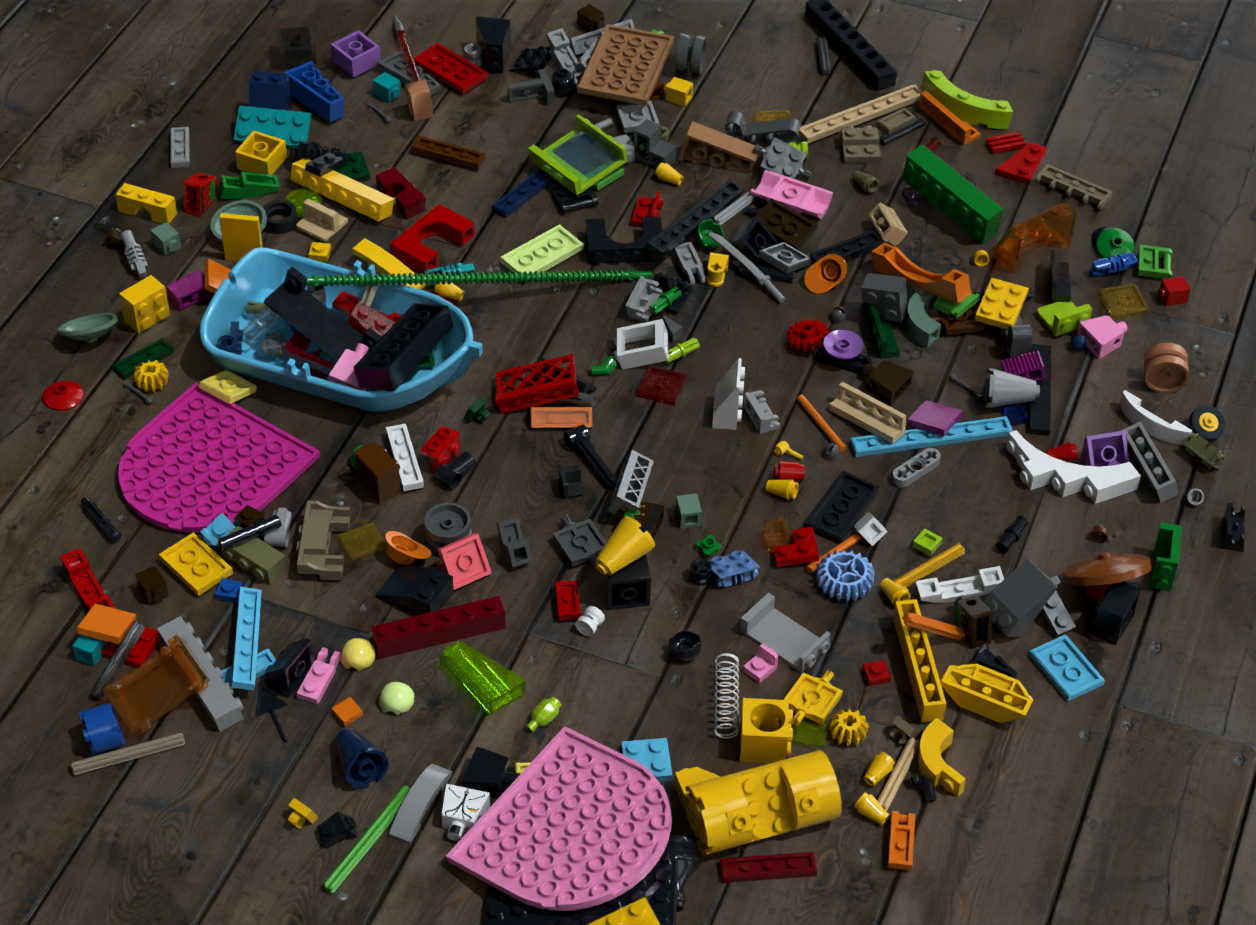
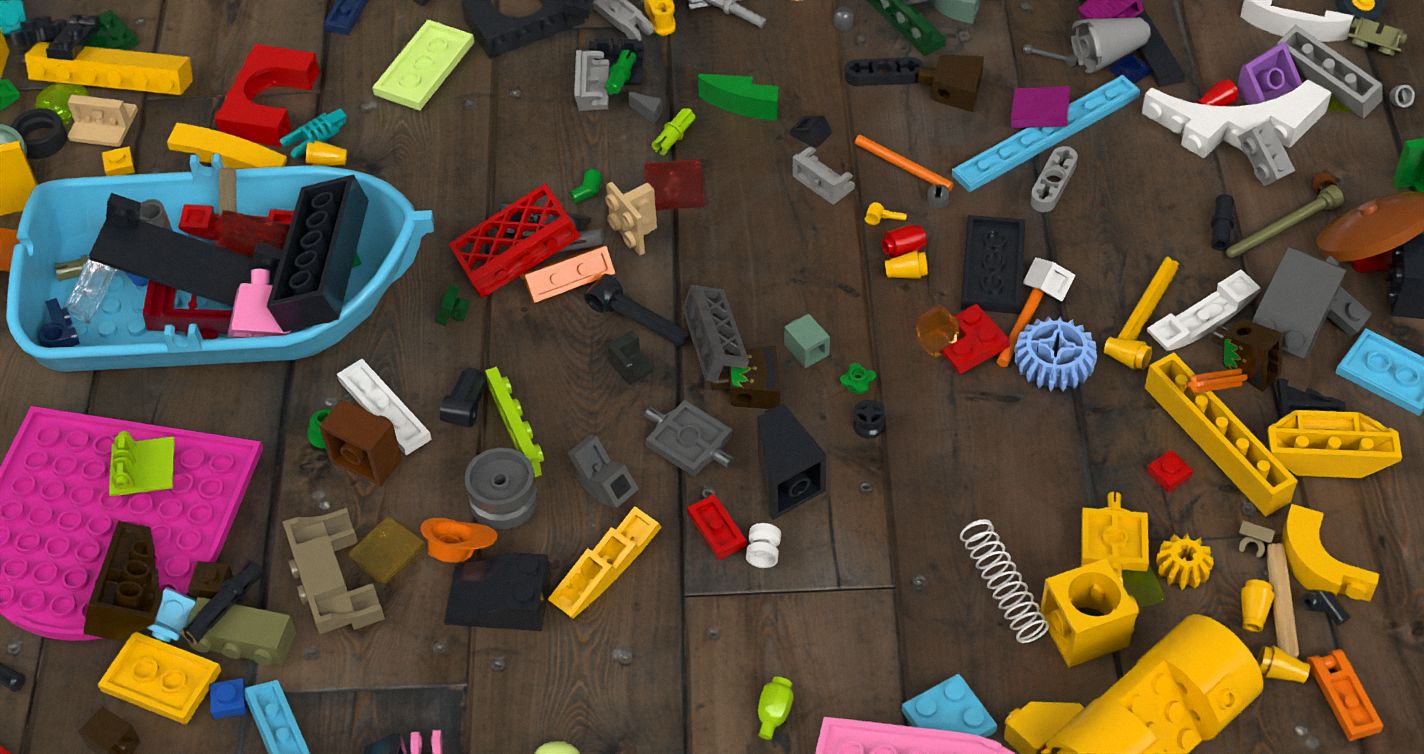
camera: 20 degrees left, 5 degrees up
(199, 503) = (127, 586): none -> dark brown wedge
(227, 386) = (80, 396): light yellow tile -> none
(242, 438) = (141, 464): none -> lime hinge
(273, 344) = (121, 312): dark grey piece -> none
(280, 536) = (265, 589): light grey piece -> none
(358, 654) = (466, 722): light yellow hair -> none
(408, 198) = (209, 53): dark red arch -> none
(438, 627) = (561, 637): dark red brick -> none
(442, 447) = (431, 374): red bracket -> none
(464, 560) = (548, 525): coral bracket -> none
(478, 500) = (510, 412): none -> lime plate
(483, 678) = (661, 686): clear neon green slope -> none
(506, 589) = (604, 564): none -> yellow slope
(514, 277) = (432, 99): green hose -> none
(621, 393) = (632, 214): none -> tan bracket
(624, 547) = (774, 424): yellow cone -> none
(644, 355) = (629, 155): white window -> none
(685, 645) = (909, 530): black hair -> none
(728, 399) = (778, 169): white slope -> none
(734, 566) = (909, 397): medium blue hinge -> none
(737, 342) = (740, 95): none -> green slope
(762, 664) = (1020, 516): bright pink bracket -> none
(773, 381) = (811, 130): none -> black slope
(783, 635) = (1025, 466): light grey panel -> none
(807, 334) = (824, 55): red gear -> none
(843, 344) = (878, 52): medium lavender dish -> none
(869, 417) = (960, 134): tan fence -> none
(927, 542) = (1128, 271): lime plate -> none
(1069, 500) = (1266, 153): none -> light grey bracket
(1095, 545) = (1328, 199): none -> olive piece

